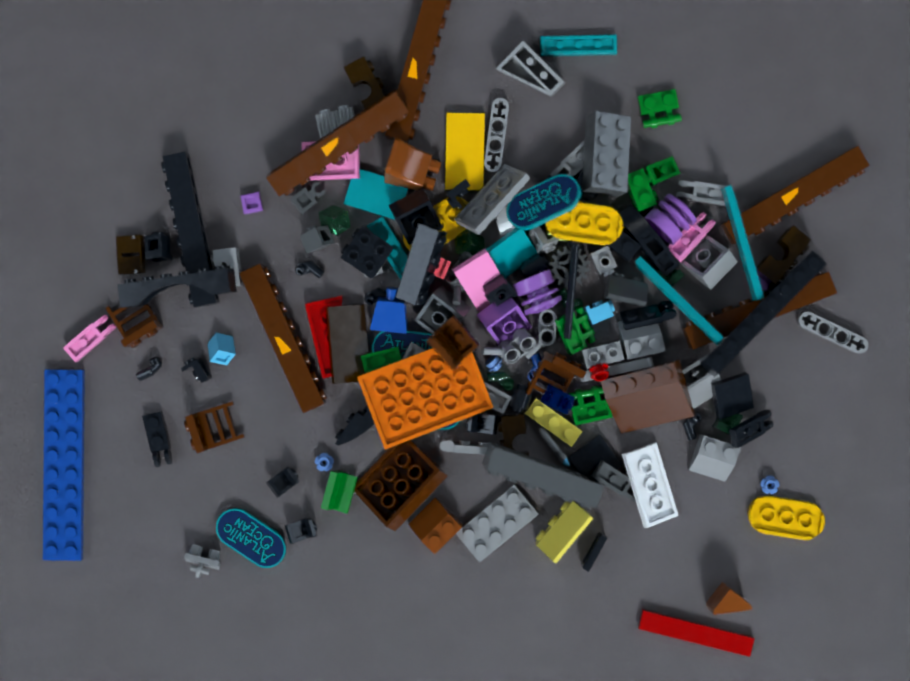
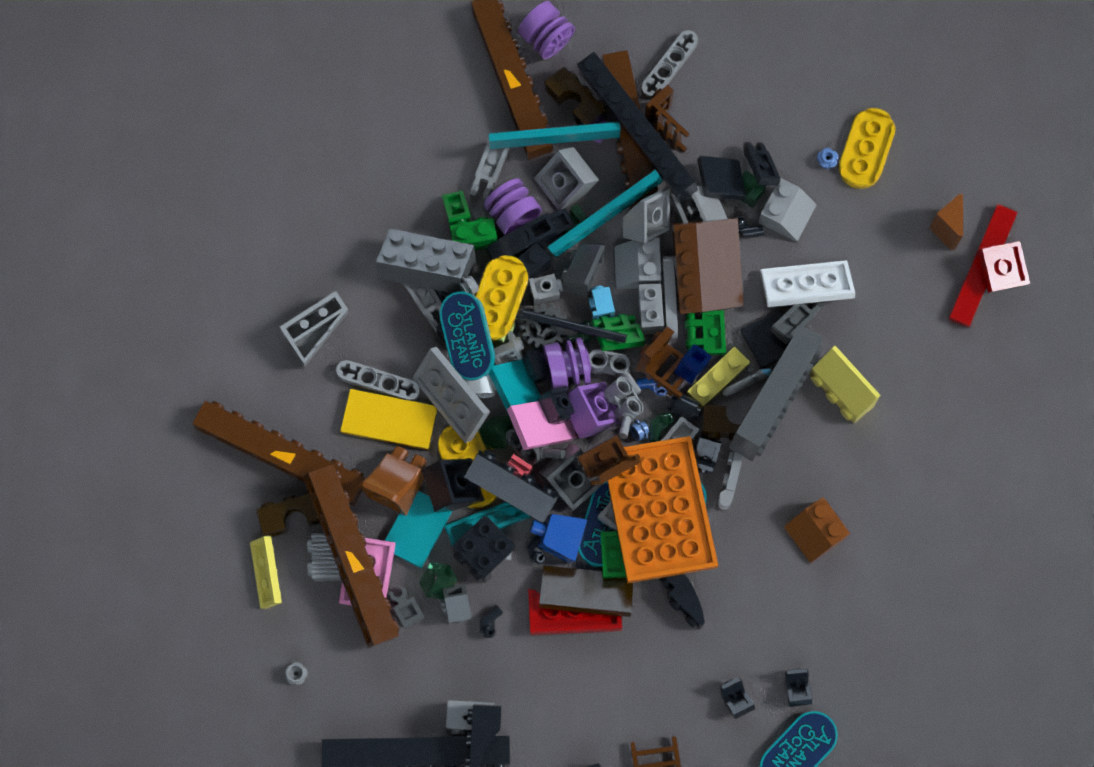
camera: 80 degrees left, 15 degrees down
(221, 349) = (565, 743): medium azure panel -> none
(237, 114) = (296, 667): none -> light grey plate
(251, 203) = (397, 675): medium lavender tile -> none
(282, 337) = (567, 666): reddish brown brick -> none
(315, 76) = (265, 572): none -> light yellow plate
(324, 457) = (721, 640): medium blue plate -> none
(339, 491) = (760, 633): green panel -> none
(399, 483) = (760, 563): reddish brown slope -> none
(460, 190) = (434, 429): black bracket -> none
(496, 523) = (825, 461): light grey plate -> none
(578, 45) = (295, 274): teal tile -> none
(587, 195) = (469, 285): none -> light grey plate
(594, 551) = (874, 358): black tile -> none
(599, 372) = (670, 311): red plate -> none
(648, 315) = (615, 252): black hinge -> none
(656, 103) = (379, 200): green plate -> none
(680, 339) = (648, 217): none -> light grey slope
(691, 238) = (539, 191): bright pink hinge -> none
(696, 651) = (1004, 266): none -> plate
(783, 326) = (657, 110): none -> reddish brown plate
(842, 217) = (546, 30): none -> medium lavender wheel

